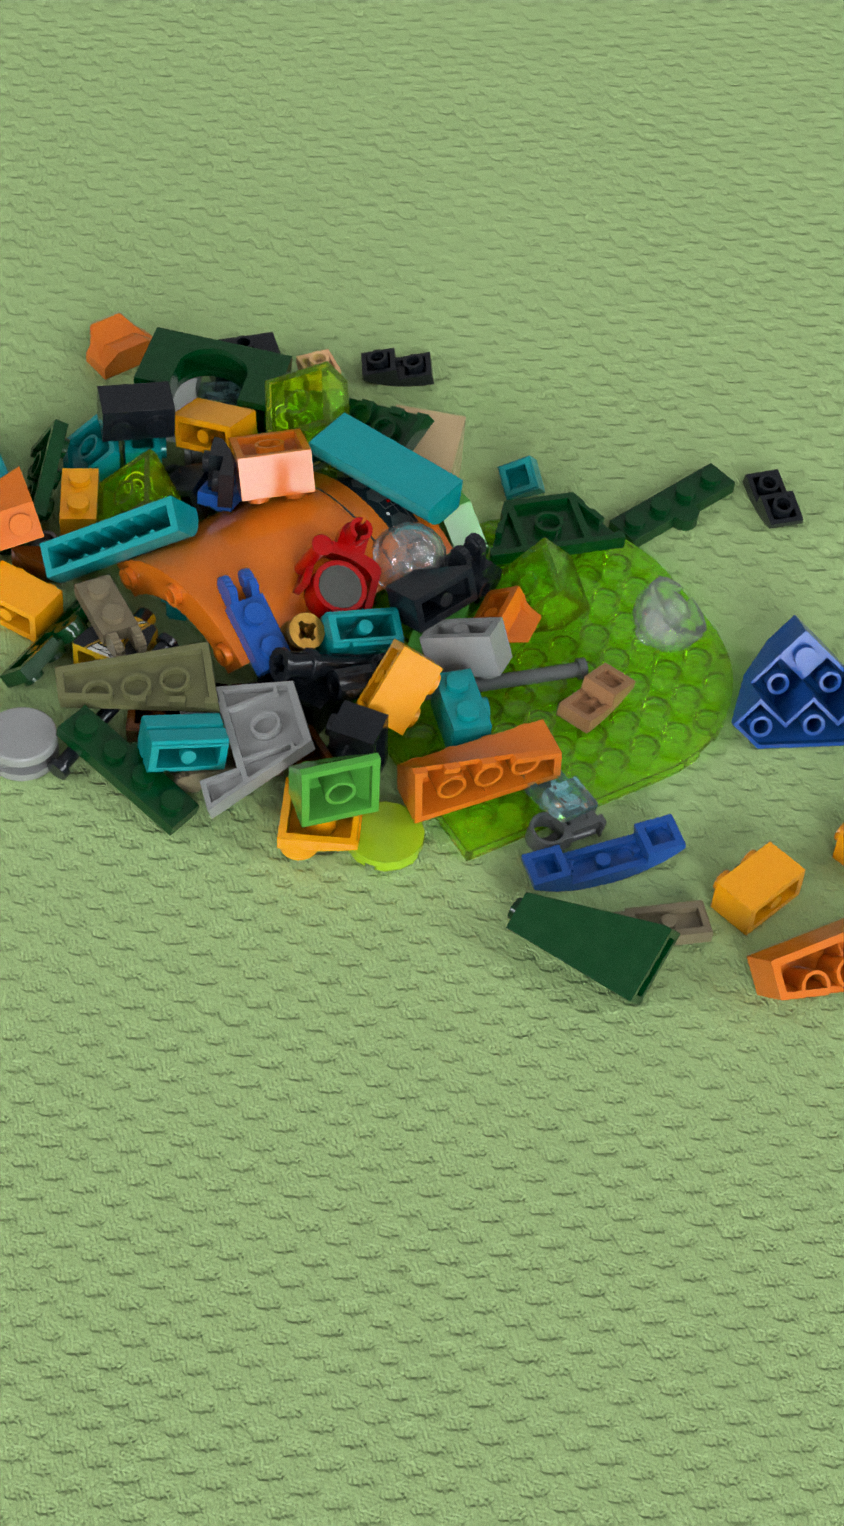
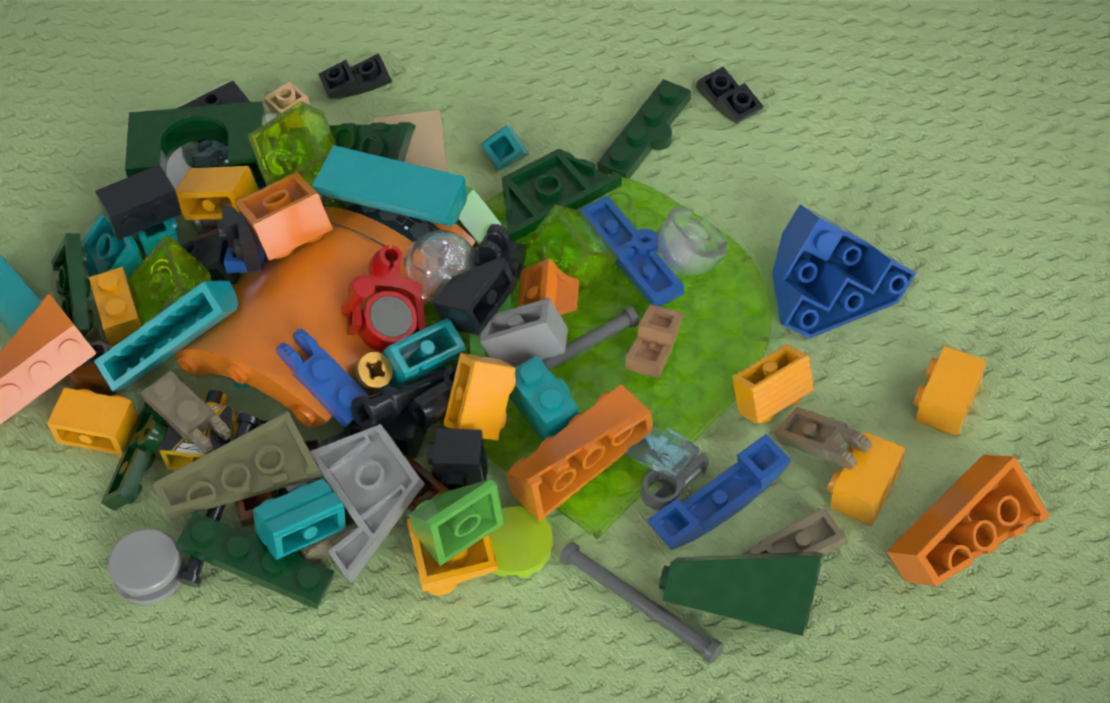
camera: 10 degrees left, 5 degrees up
(116, 345) = (96, 136): orange slope -> none
(536, 989) = (709, 648): none -> dark grey bar
(609, 611) = (635, 252): none -> blue hinge
(698, 773) = (773, 384): none -> light orange brick
(726, 834) = (821, 437): none -> dark tan hinge

